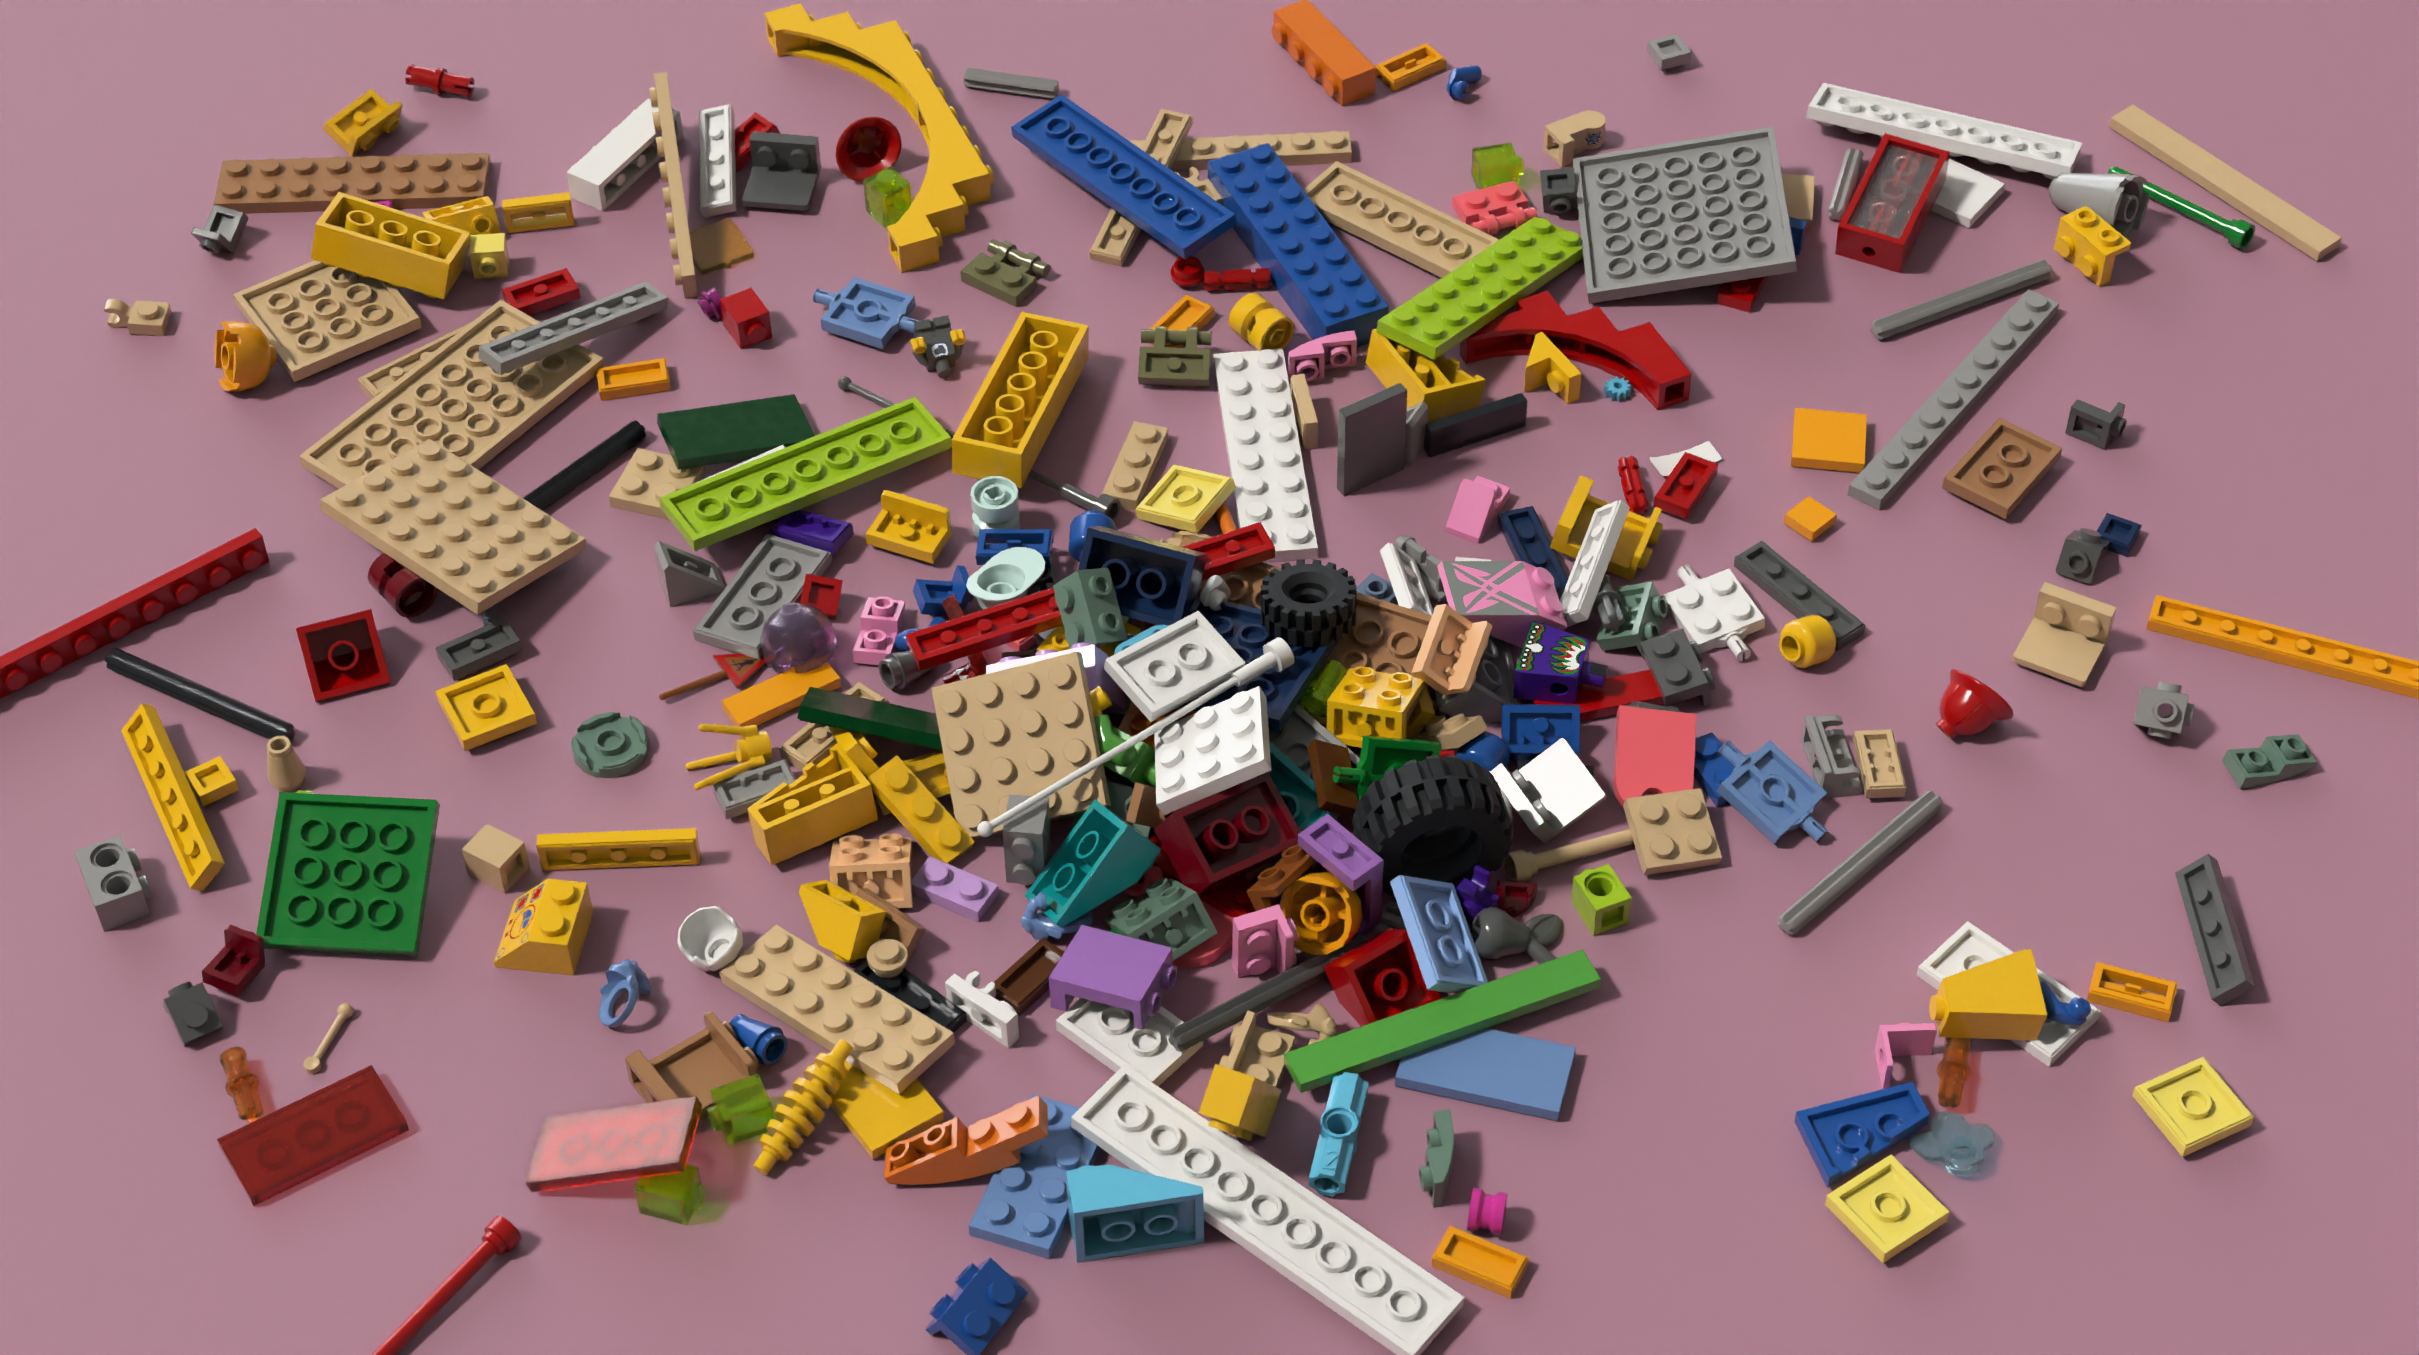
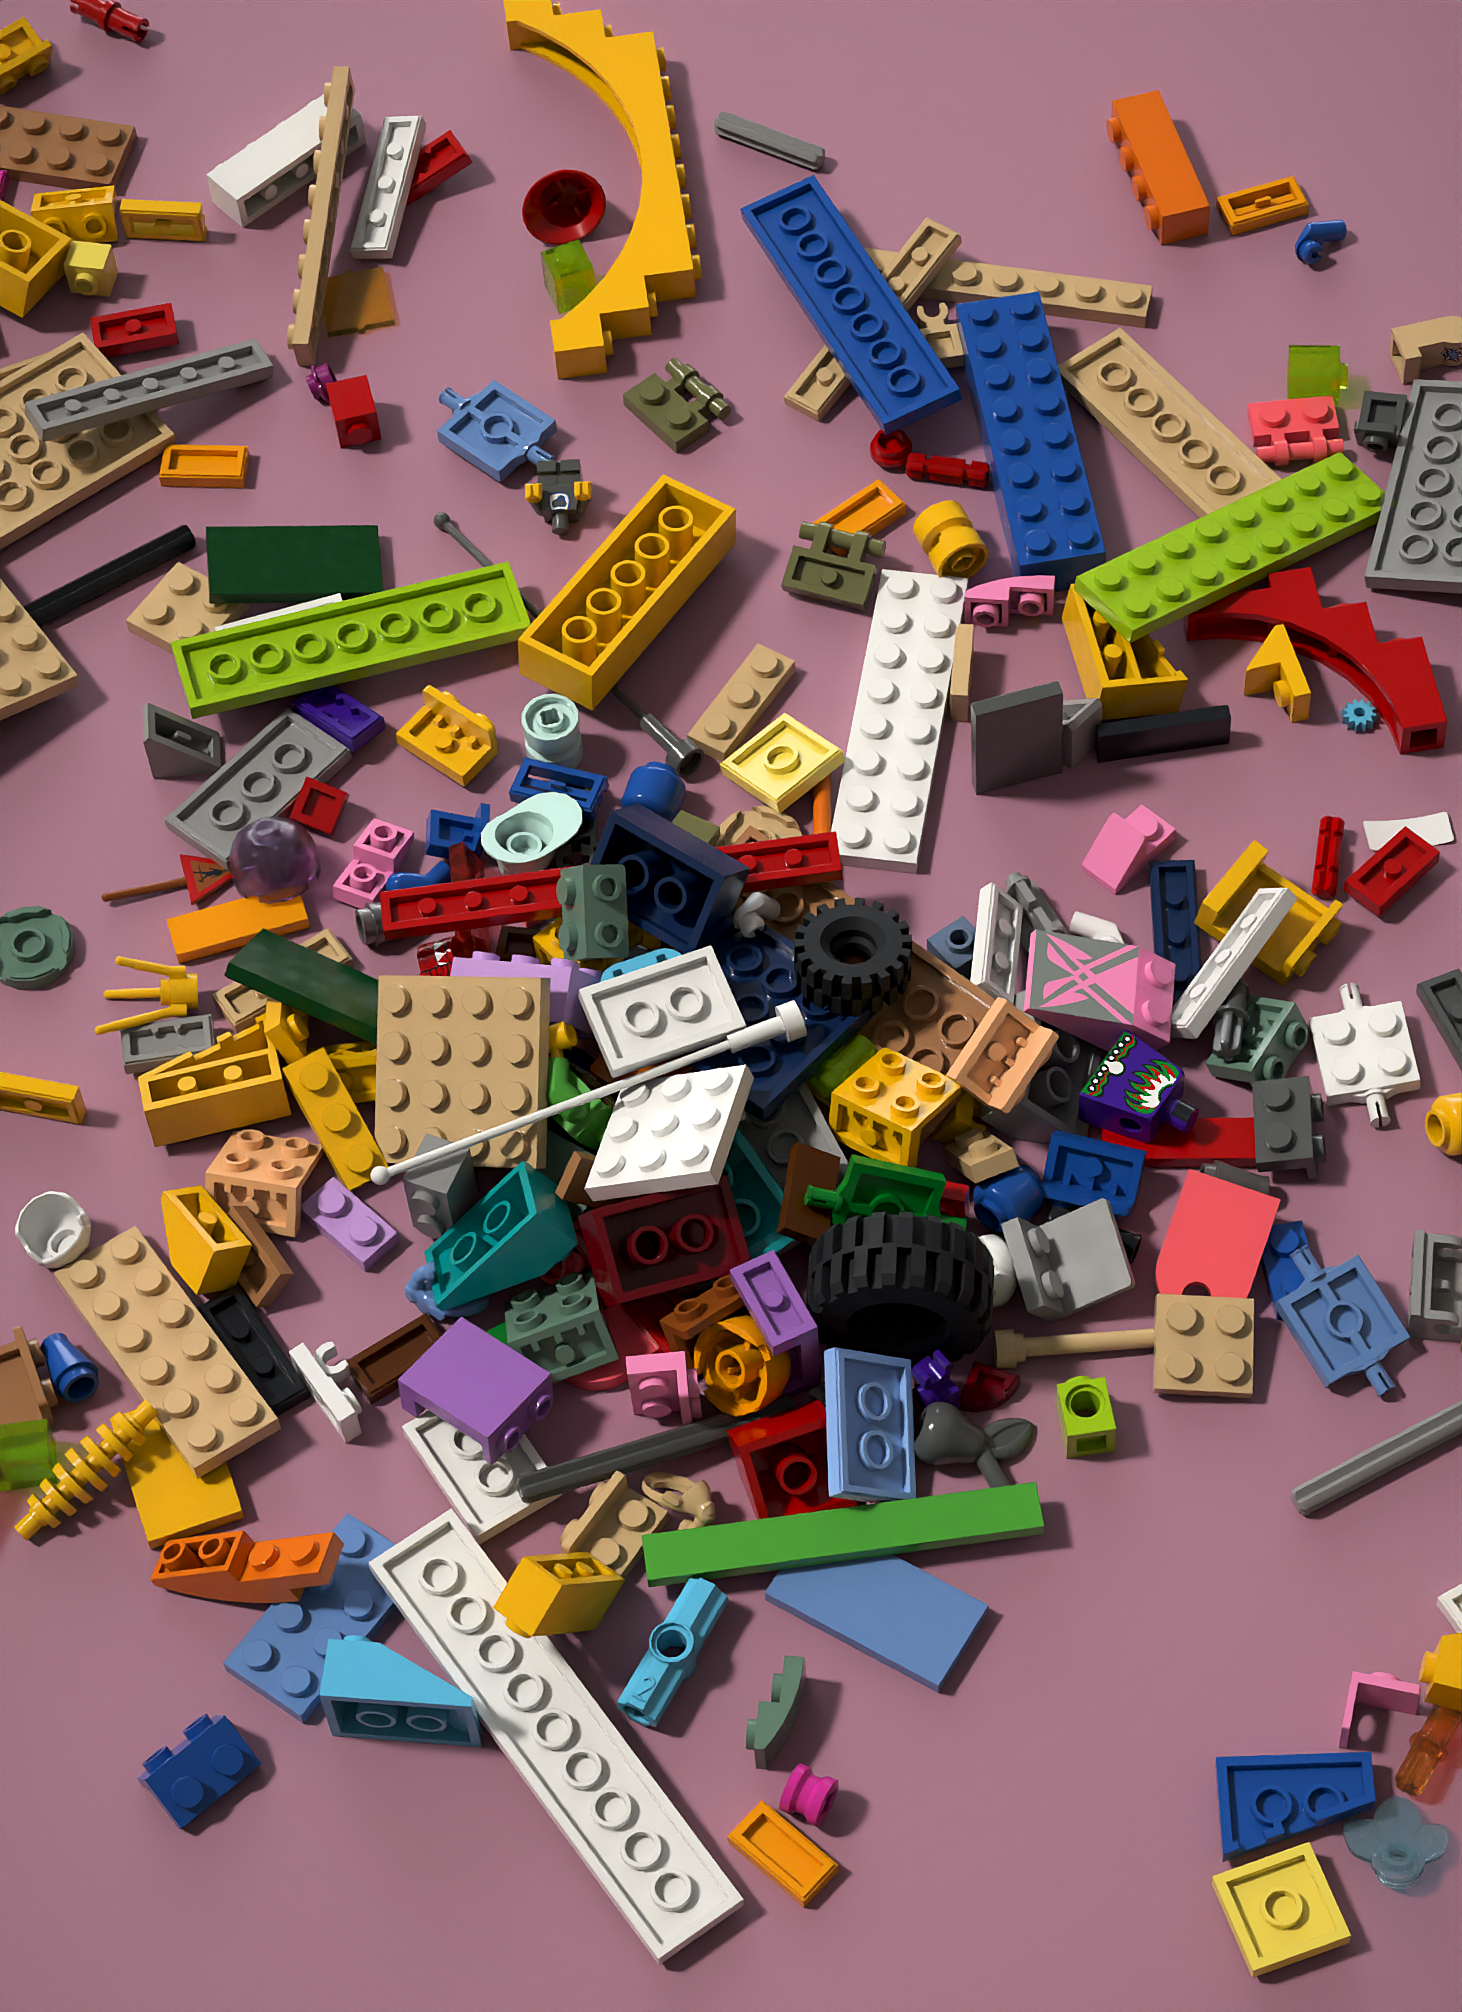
camera: 20 degrees right, 10 degrees up
(782, 171) = (459, 219): dark grey bracket -> none
(887, 958) = (239, 1300): tan plate -> none

